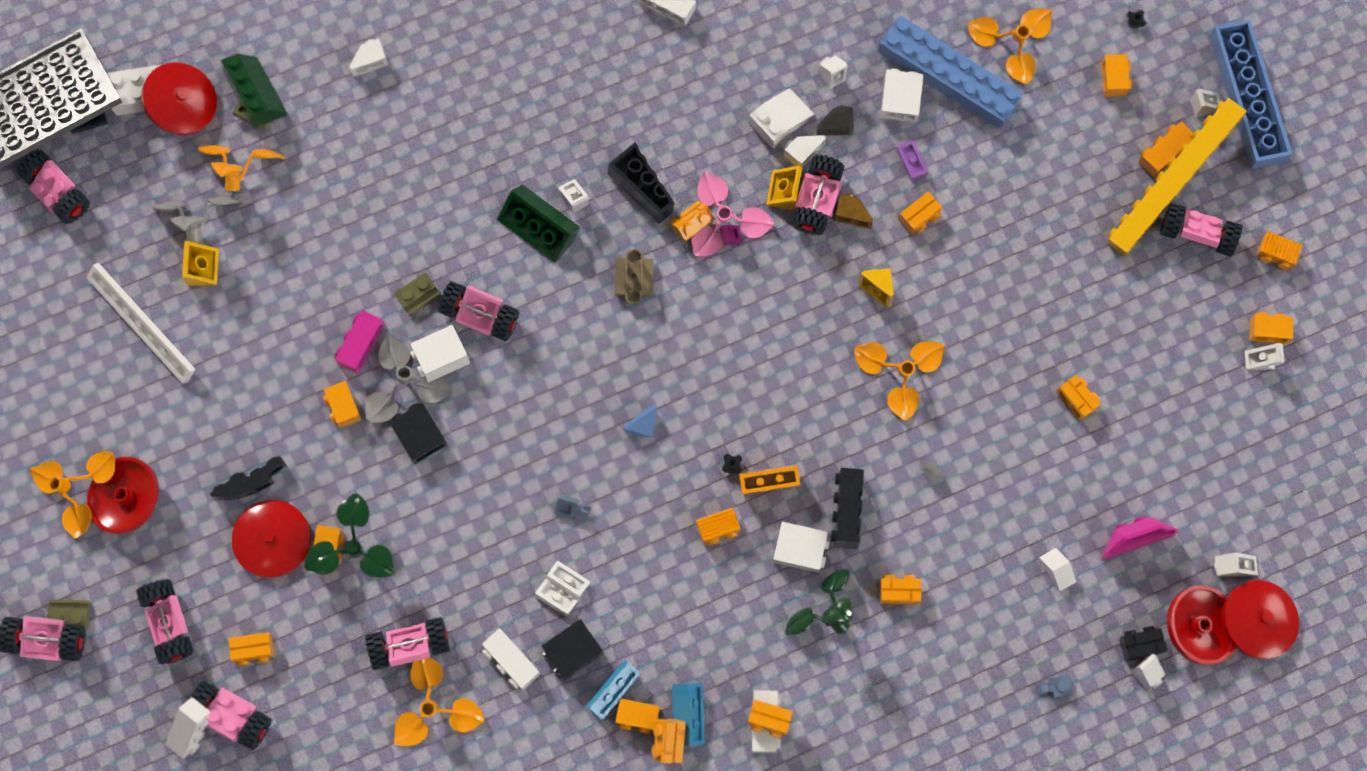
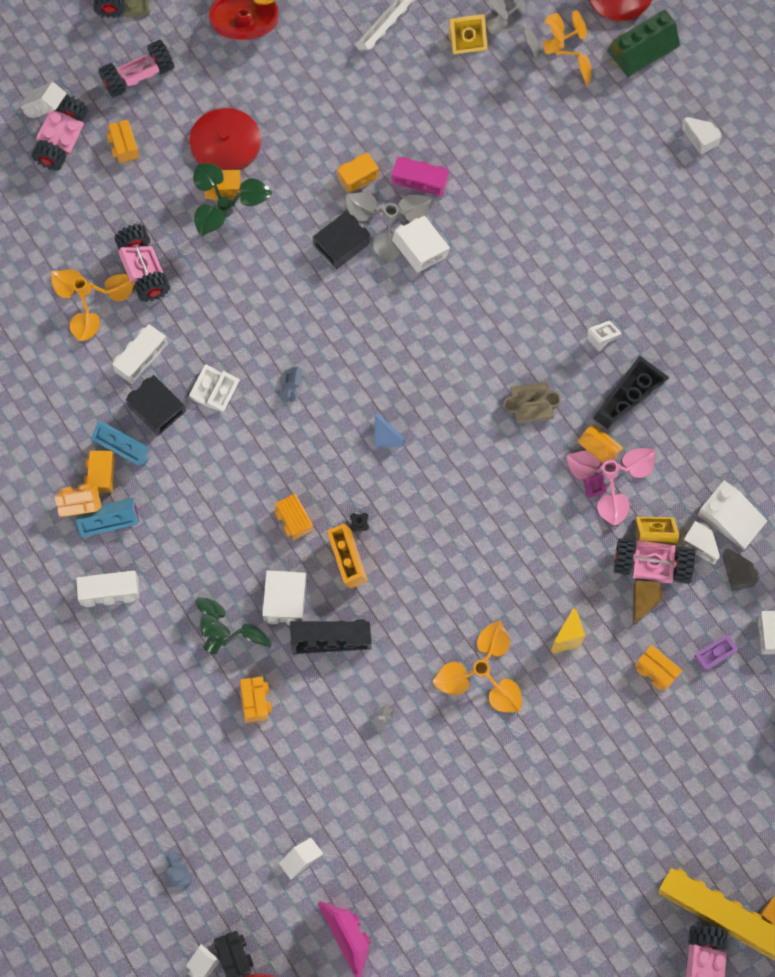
camera: 80 degrees right, 5 degrees down
(243, 486) = (272, 114): black slope -> none
(417, 294) = (477, 218): olive plate -> none
(478, 310) = (468, 268): plate -> none
(538, 223) = (569, 308): dark green slope -> none
(769, 718) = (107, 585): light orange brick -> none
(1078, 397) = (488, 858): light orange brick -> none

